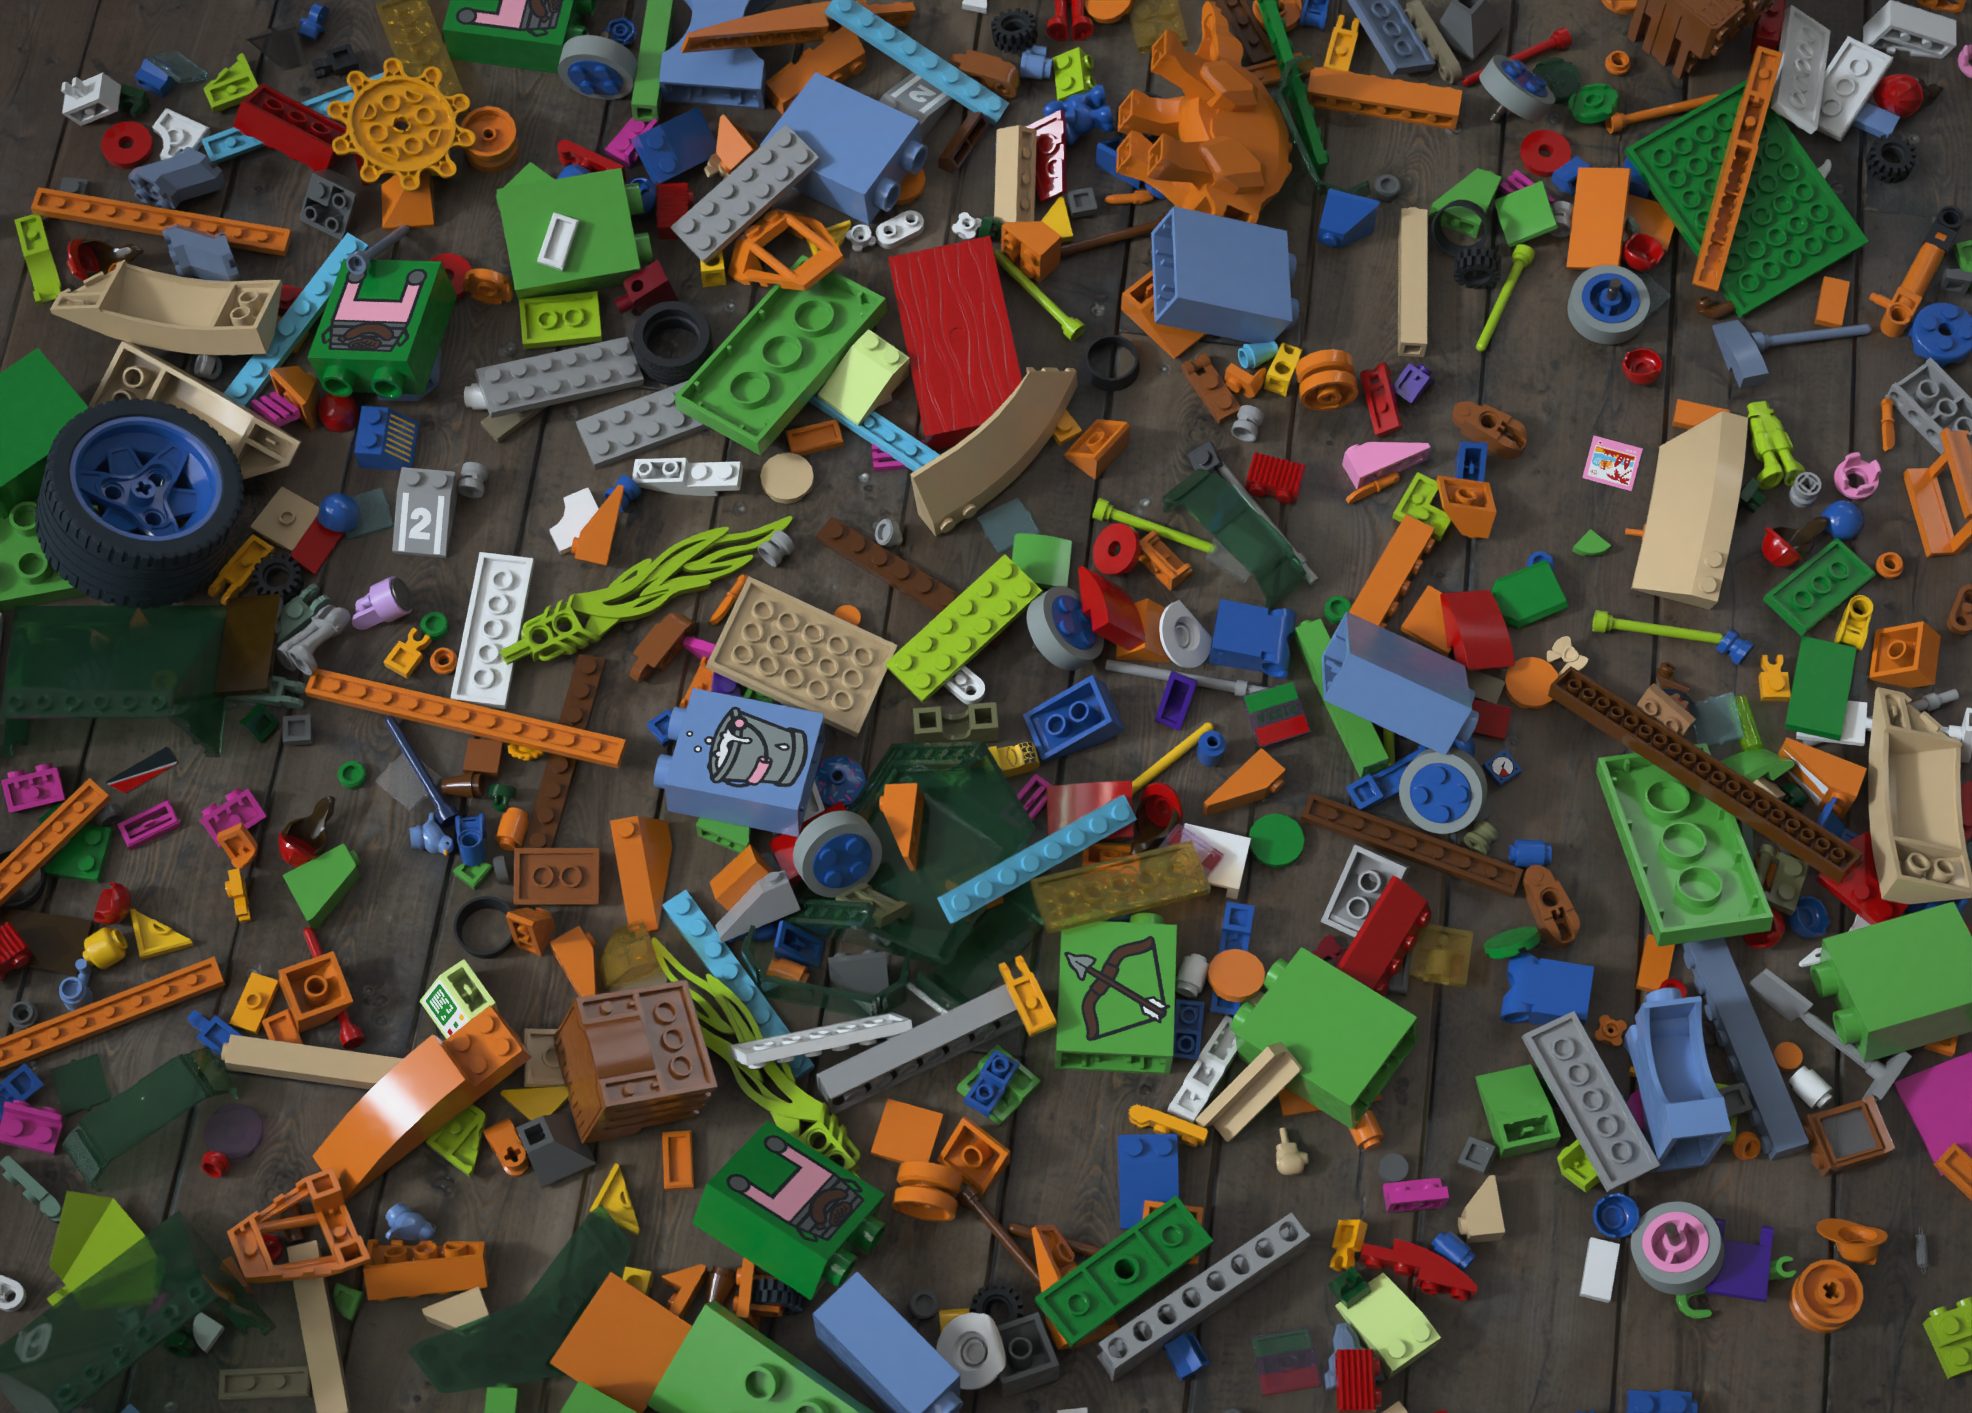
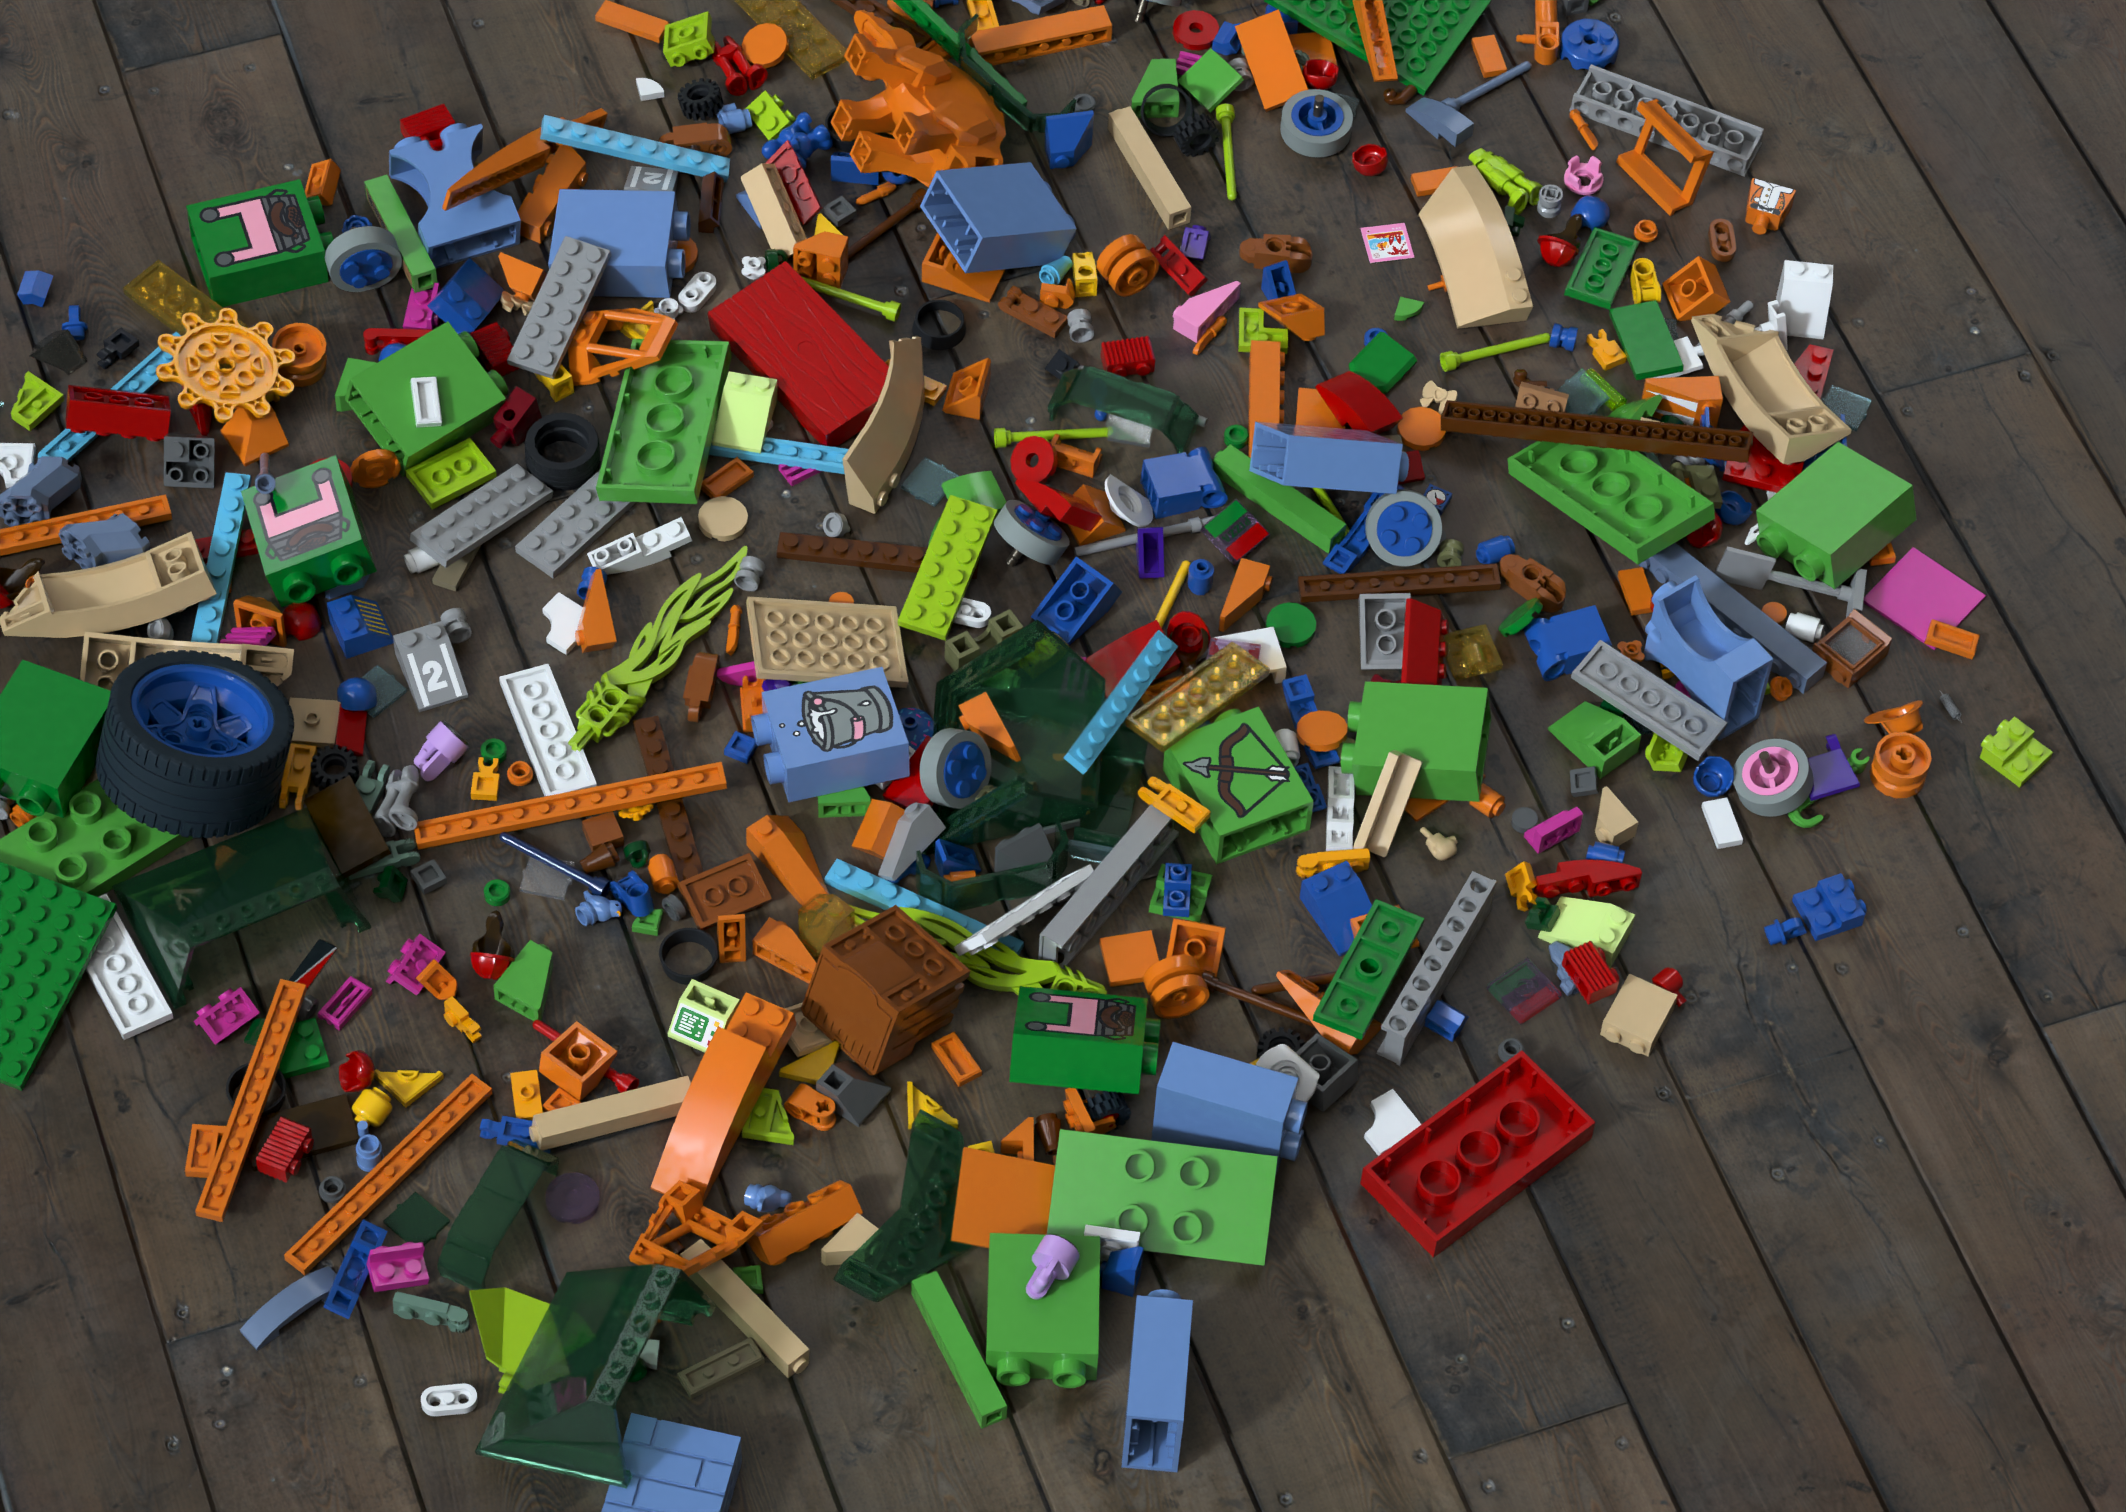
camera: 30 degrees left, 10 degrees down
(215, 1164) = (574, 1231): red plate -> none

